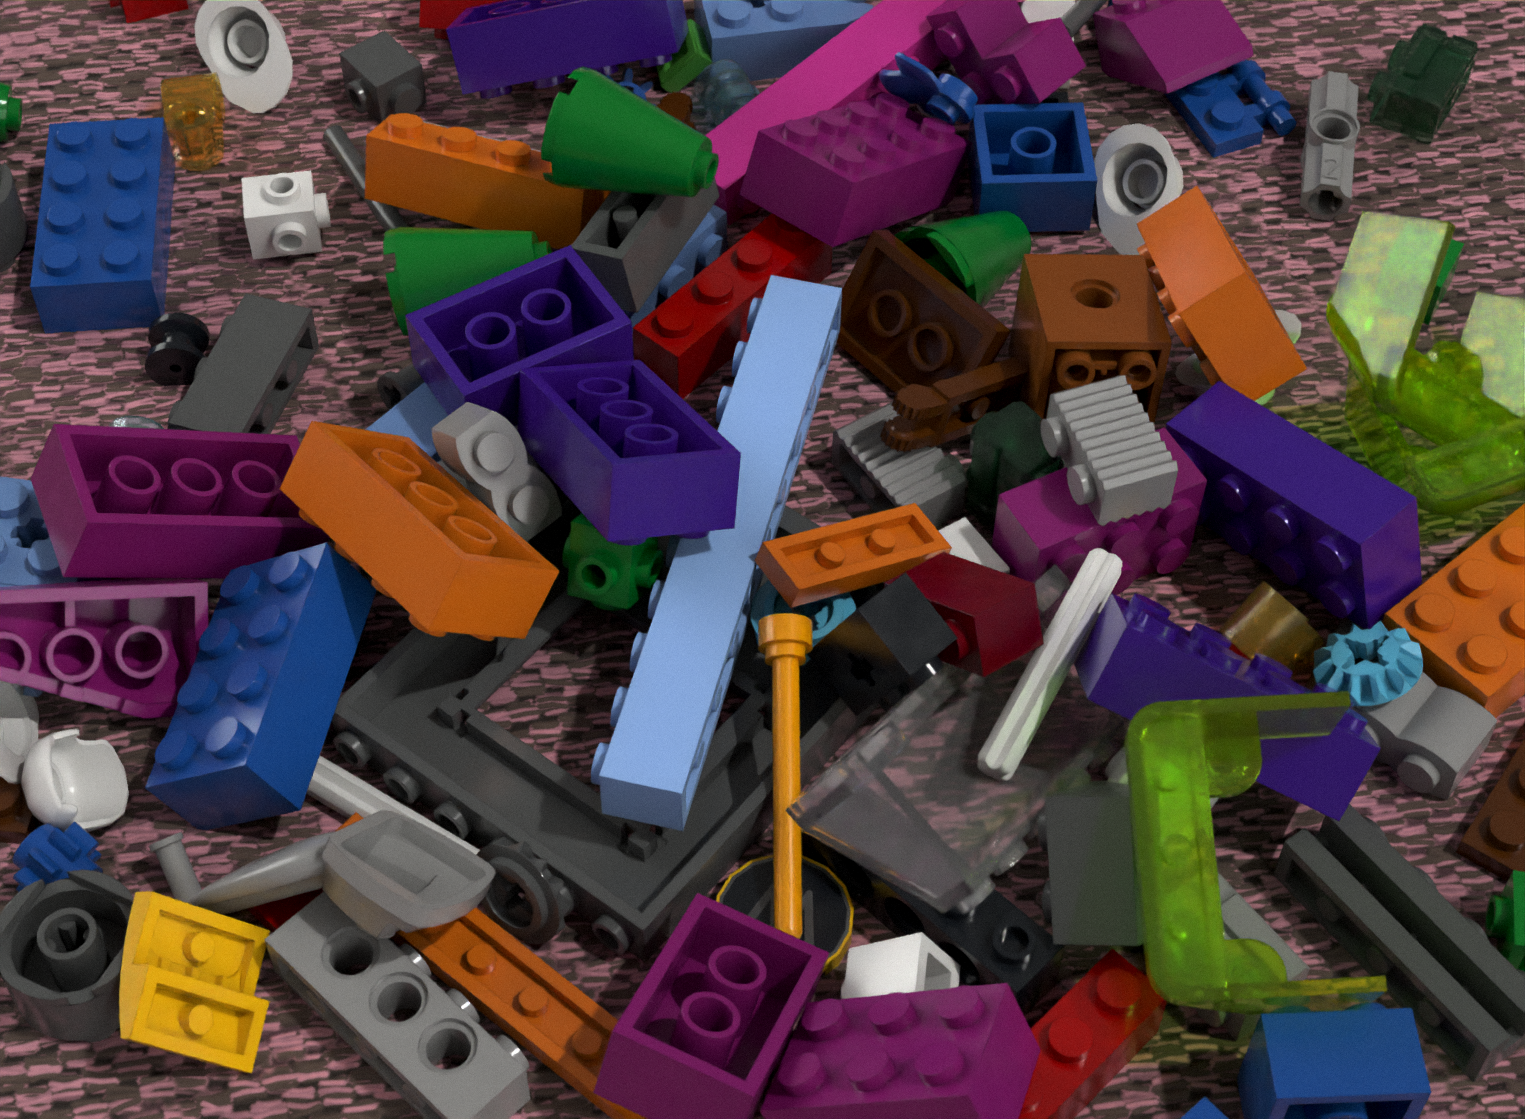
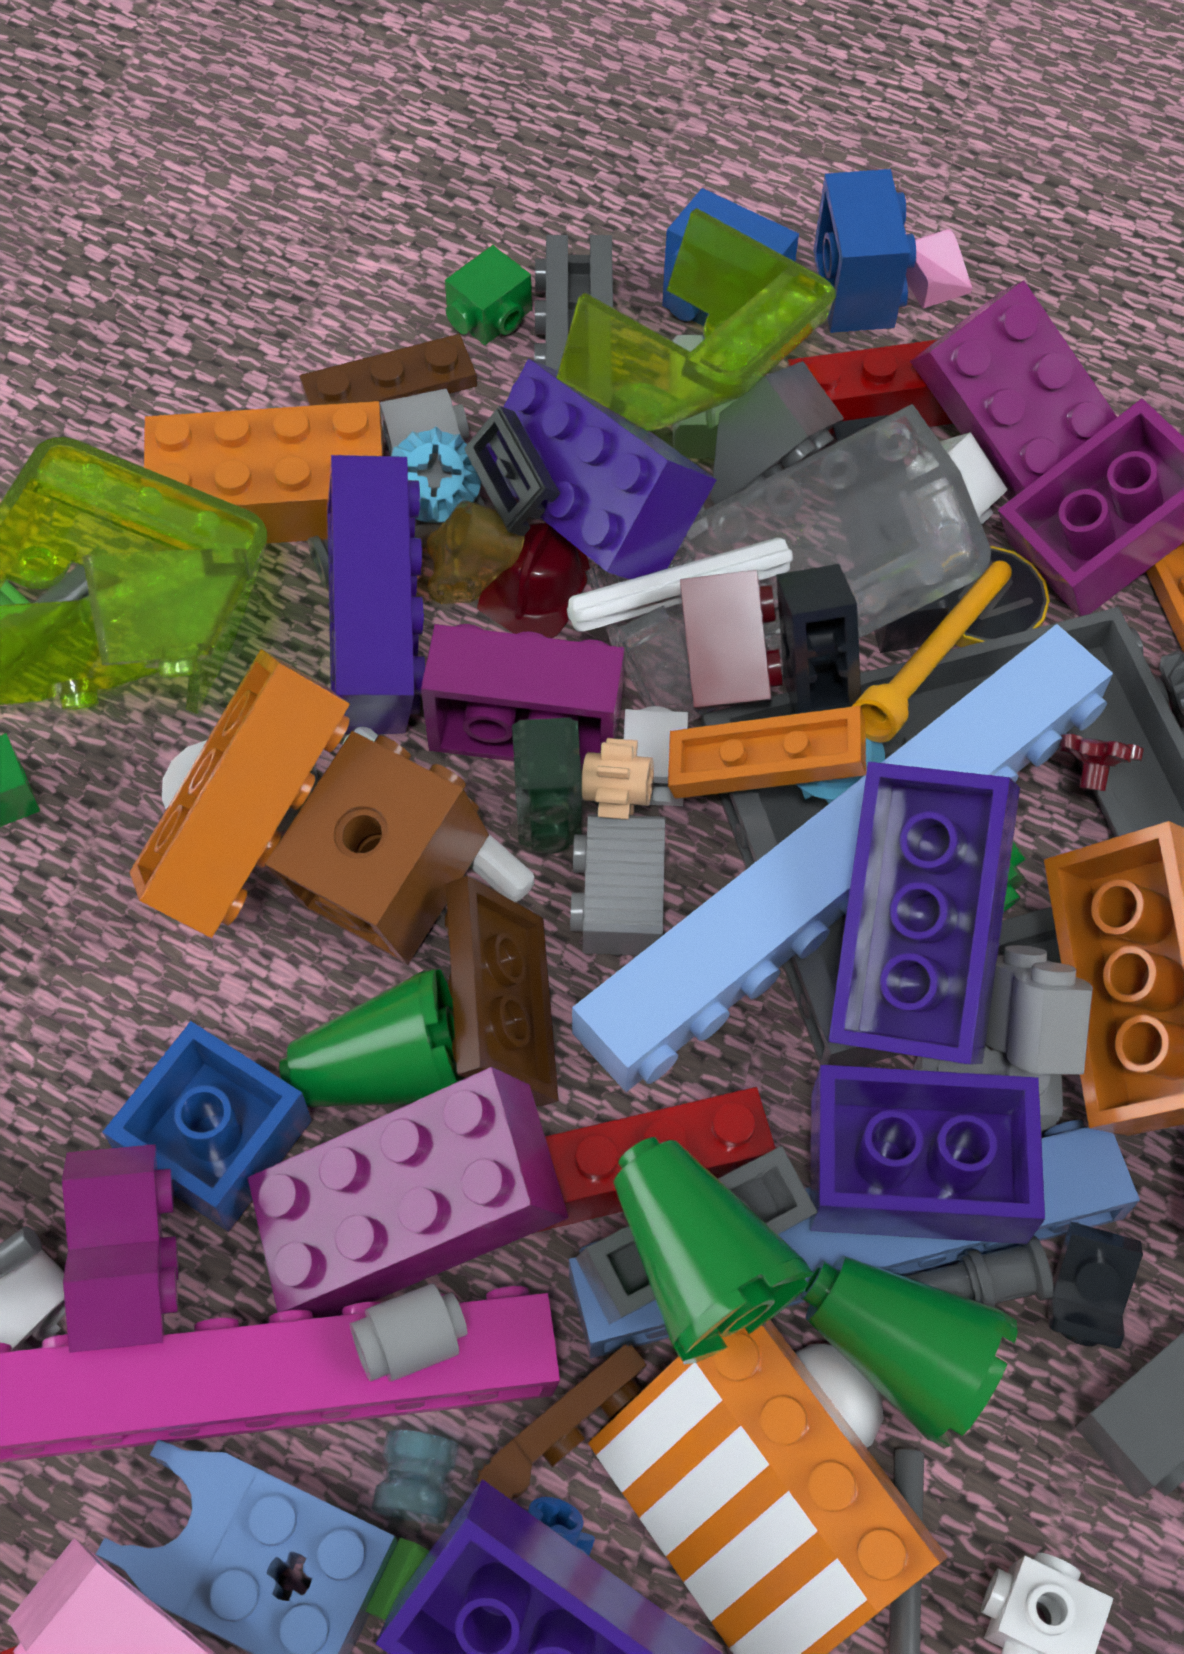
camera: 145 degrees left, 10 degrees up
(348, 392) = (1093, 1285): none -> black bracket
(570, 735) = (1098, 757): none -> dark red plant
(786, 91) = (408, 1333): none -> light grey brick
(934, 97) = (249, 1239): blue plate -> none
(951, 405) = (555, 861): reddish brown hinge -> none
(960, 491) = (617, 778): none -> light nougat gear
(1109, 450) = (506, 664): light grey brick -> none
(1136, 168) = (128, 1028): white piece -> none
(1287, 652) = (516, 461): none -> pearl dark grey tile

